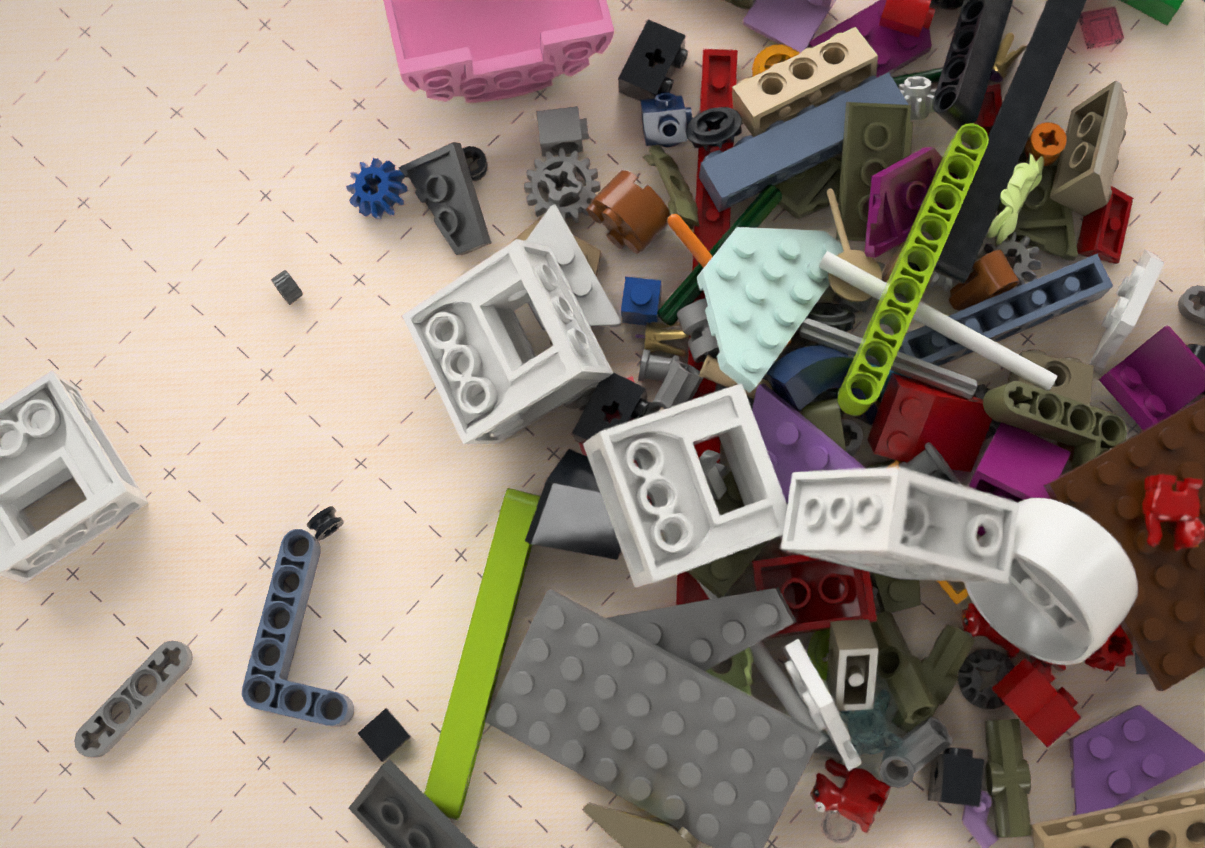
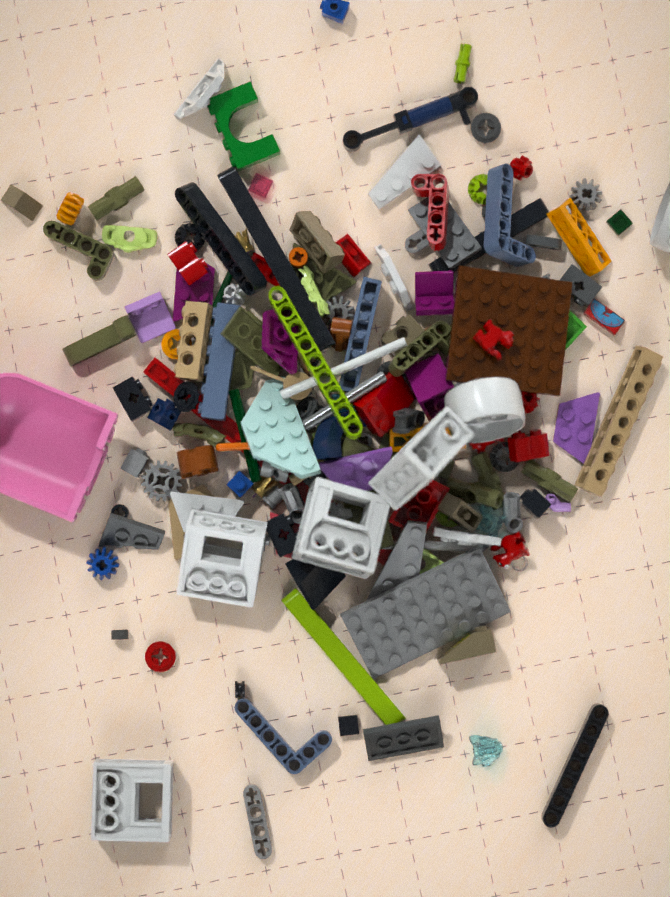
camera: 65 degrees left, 10 degrees up
(279, 367) = (153, 663): none -> red gear

